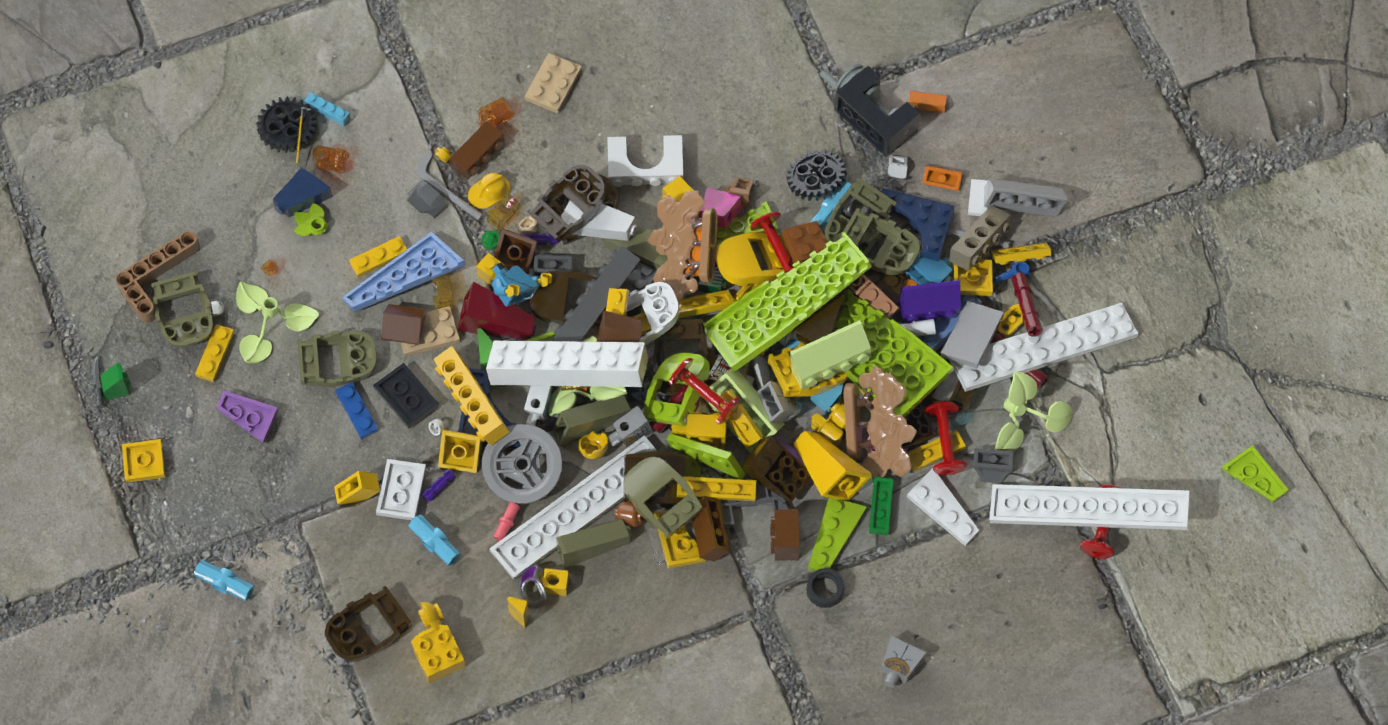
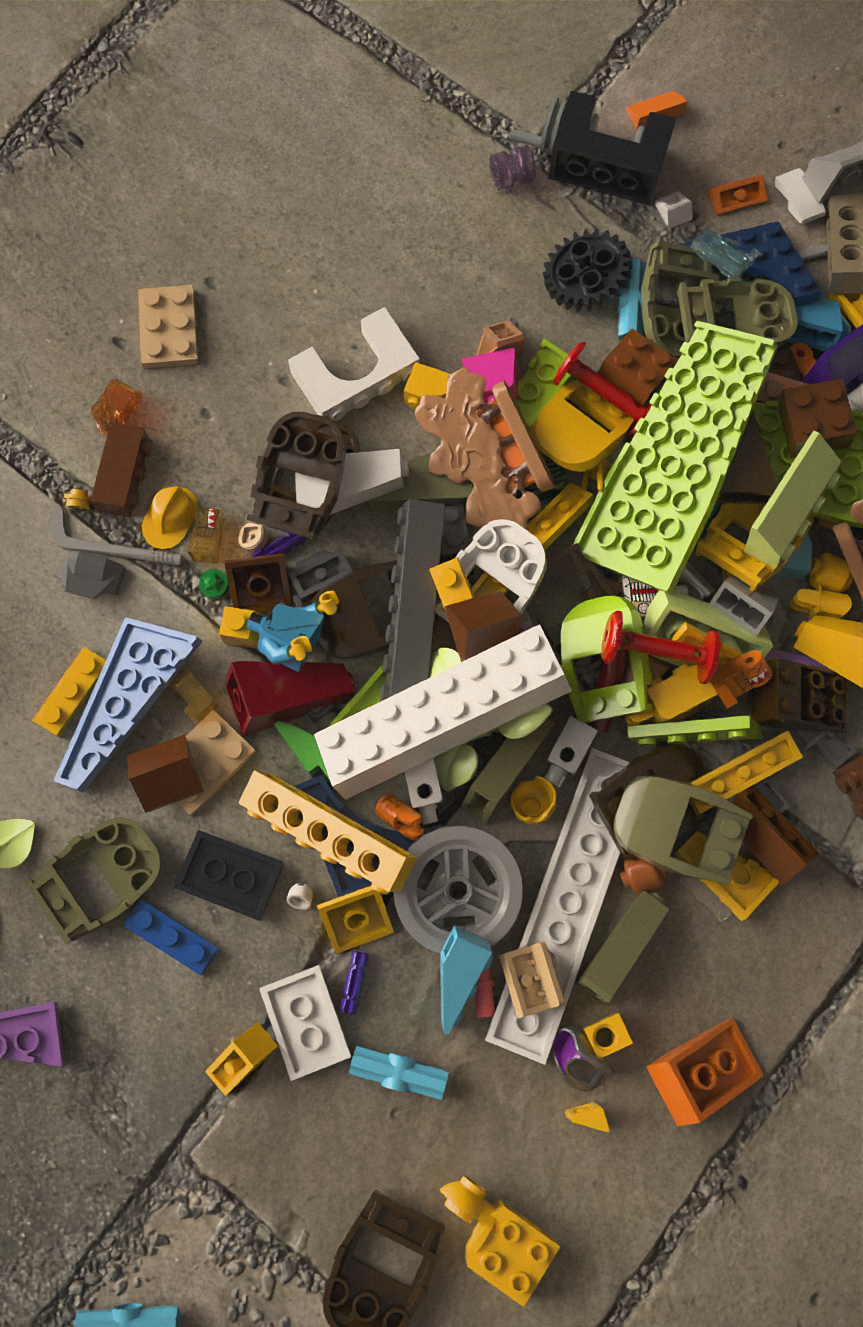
camera: 30 degrees left, 10 degrees up
(498, 500) = (461, 964): none -> medium azure slope
(514, 411) = (400, 816): none -> orange hinge
(532, 528) = (531, 979): none -> tan bracket
(596, 628) = (705, 1073): none -> orange slope
(744, 435) = (740, 676): none -> orange leg
(812, 92) = (512, 167): none -> wheel
(879, 319) = (817, 408): none -> reddish brown brick
(896, 205) = (723, 253): none -> clear light blue wing

